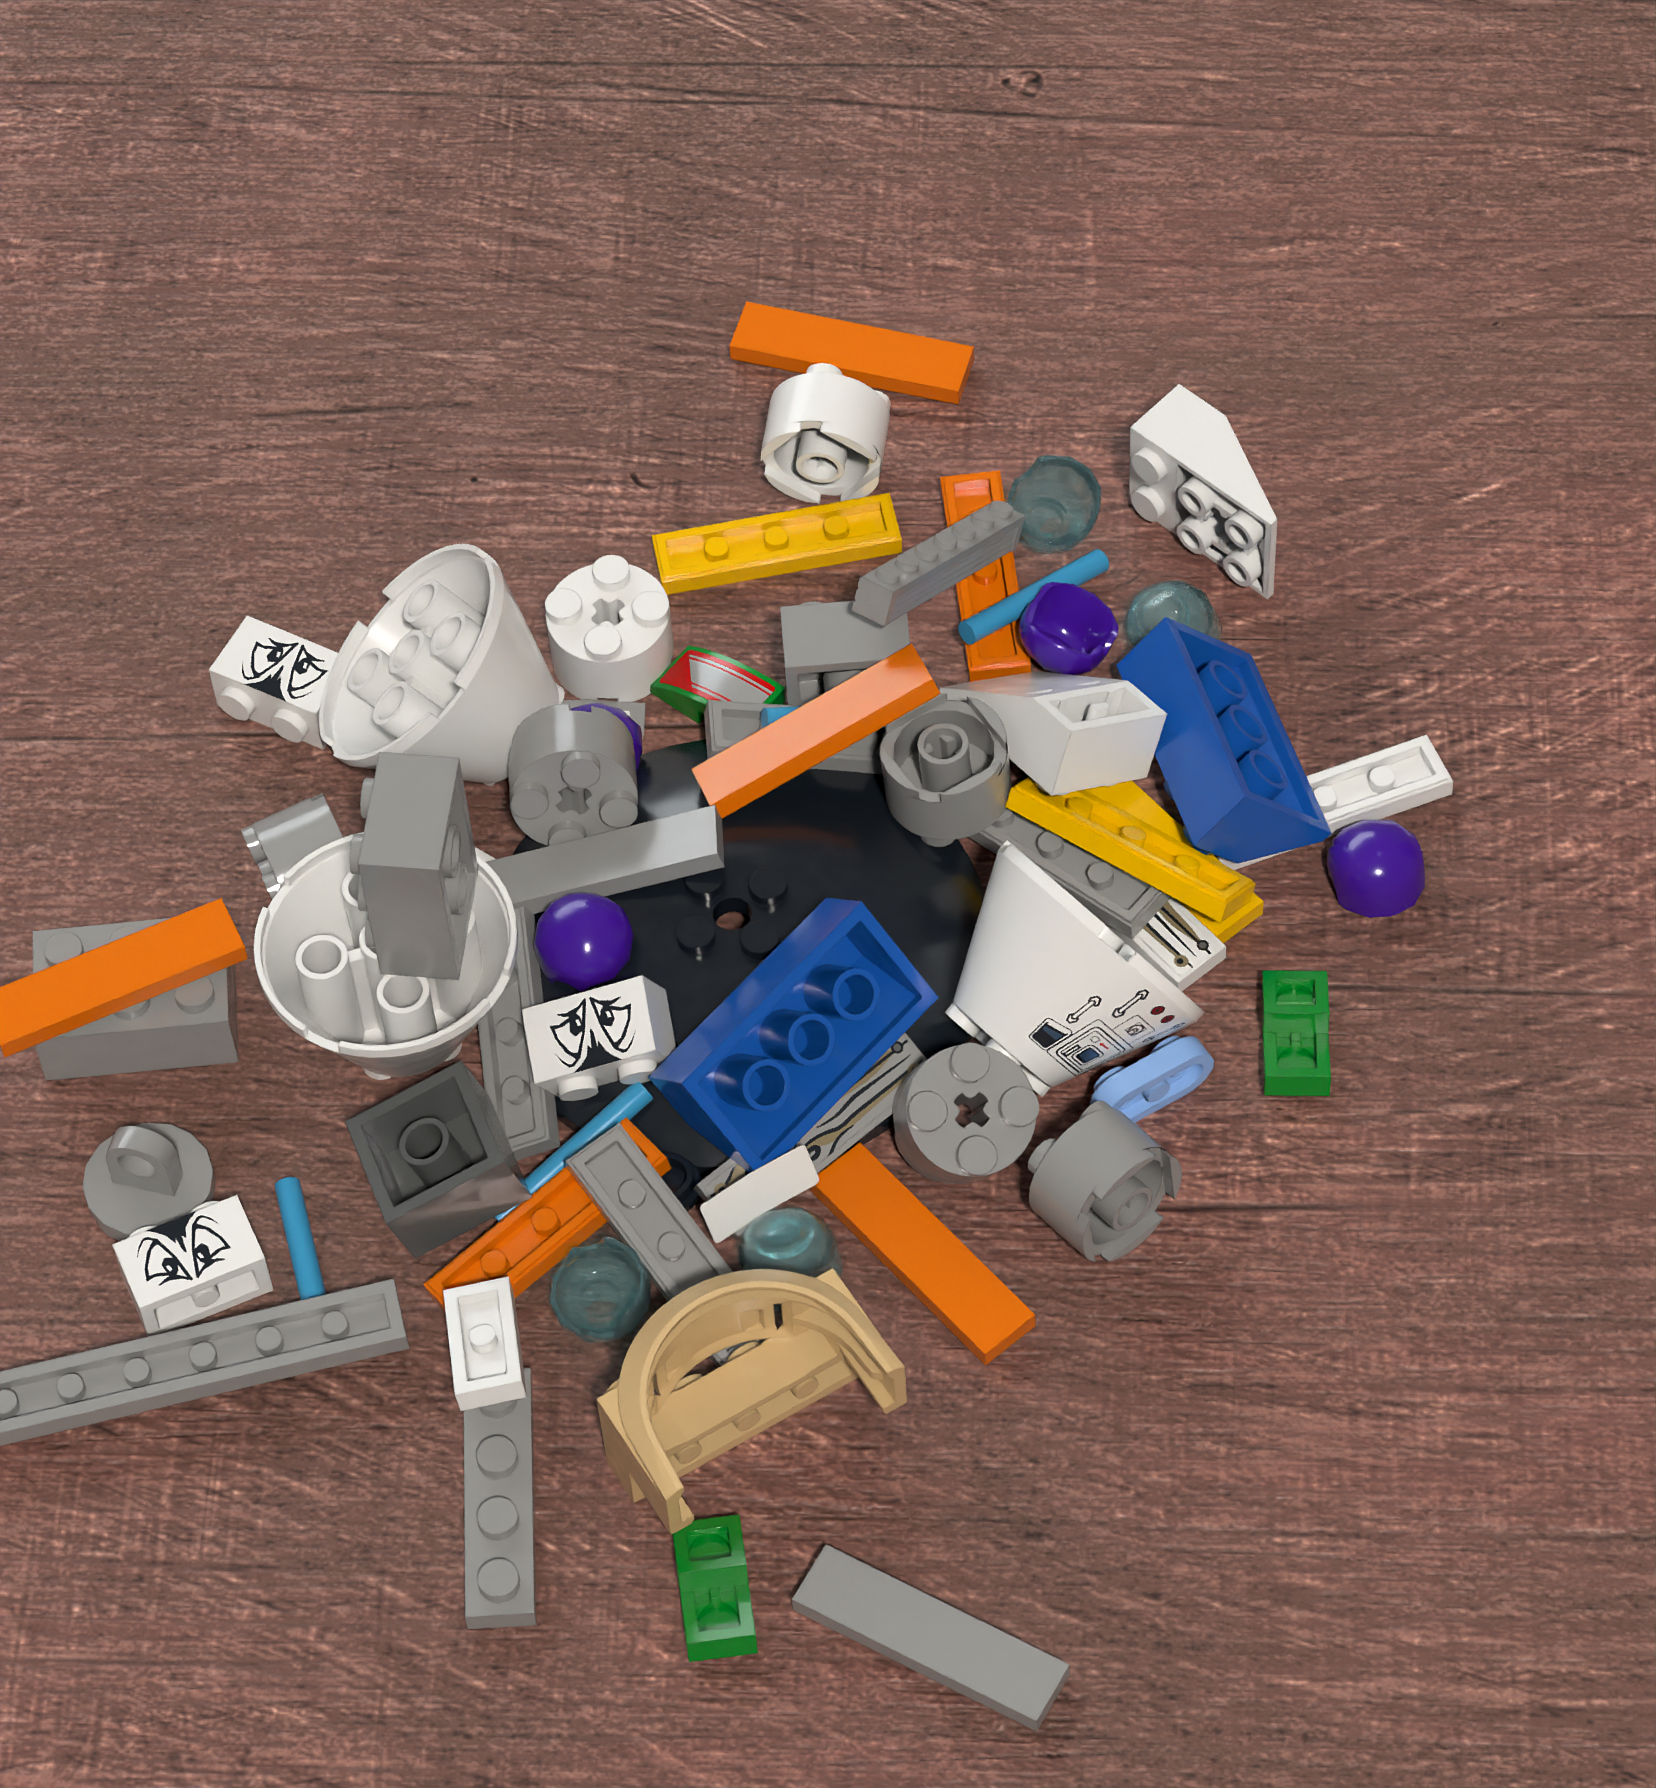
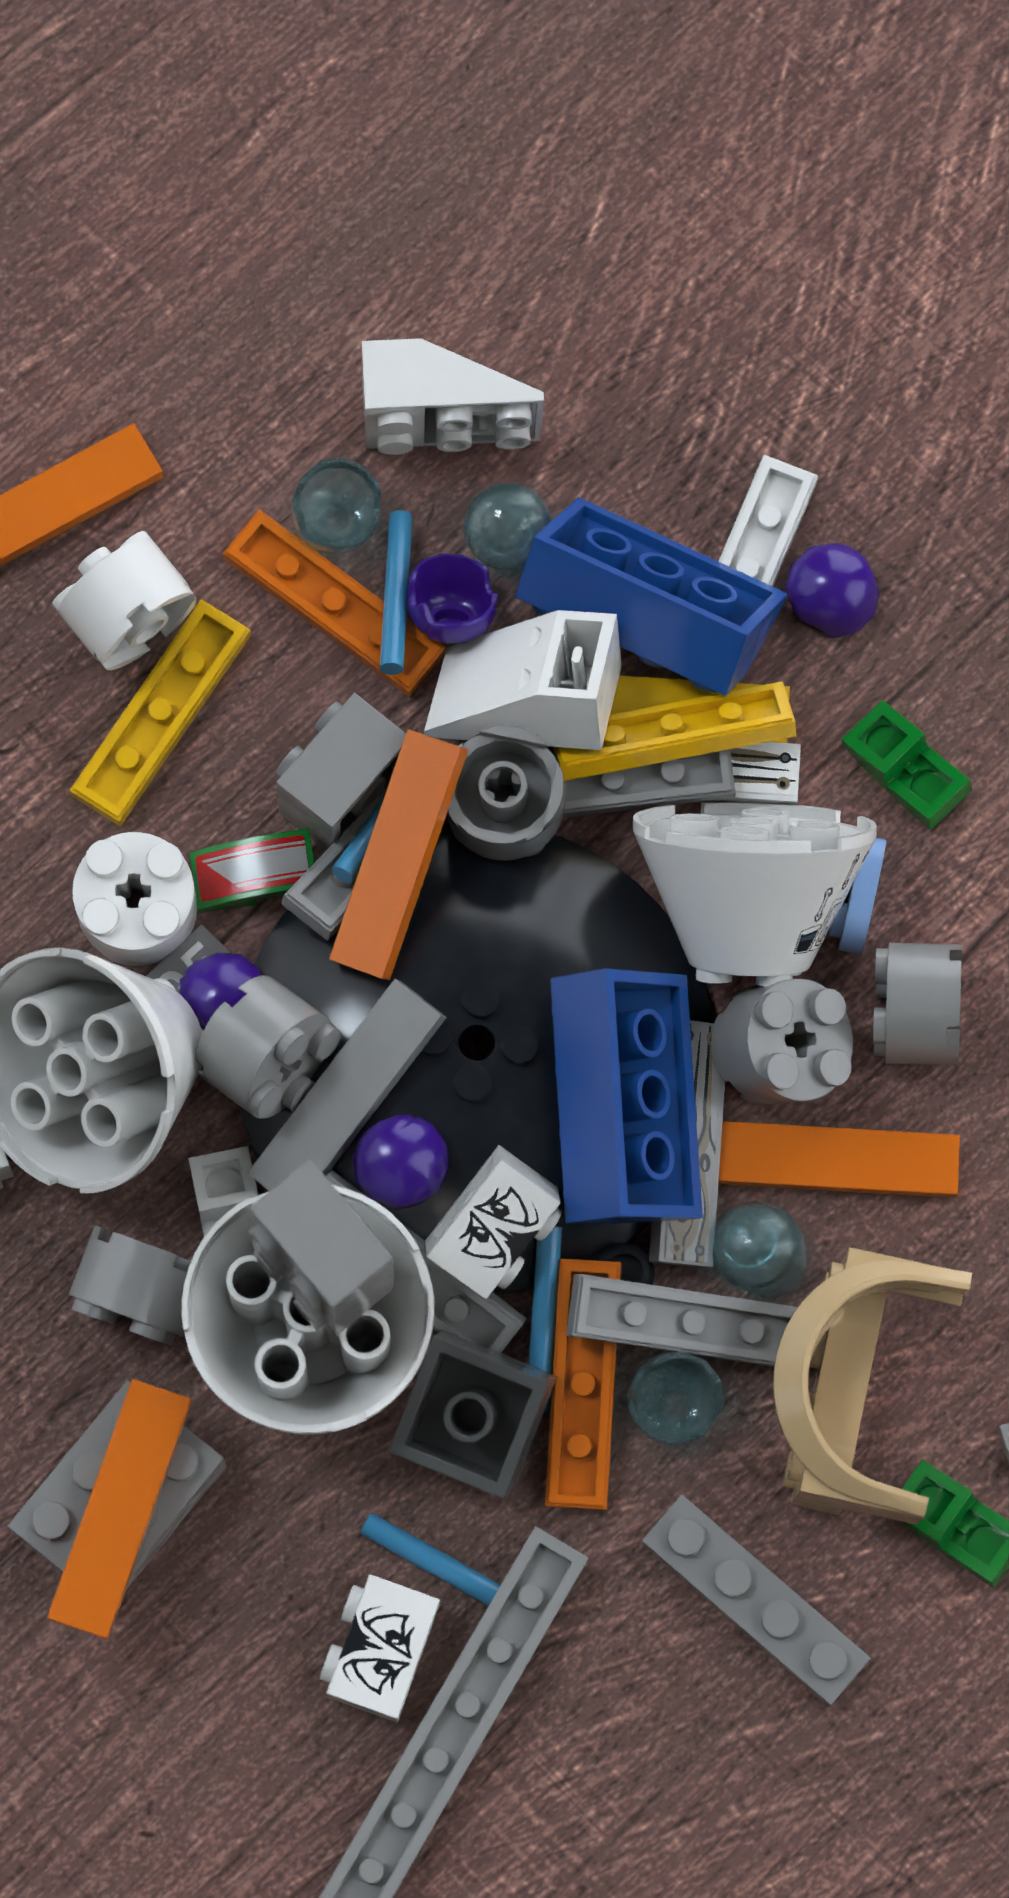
camera: 55 degrees left, 20 degrees up
(146, 1178) = (275, 1616): light grey tile -> none
(484, 1343) = (650, 1512): white plate -> none
(759, 1192) = (706, 1227): white sticker -> none
(938, 563) = (342, 641): light grey piece -> none

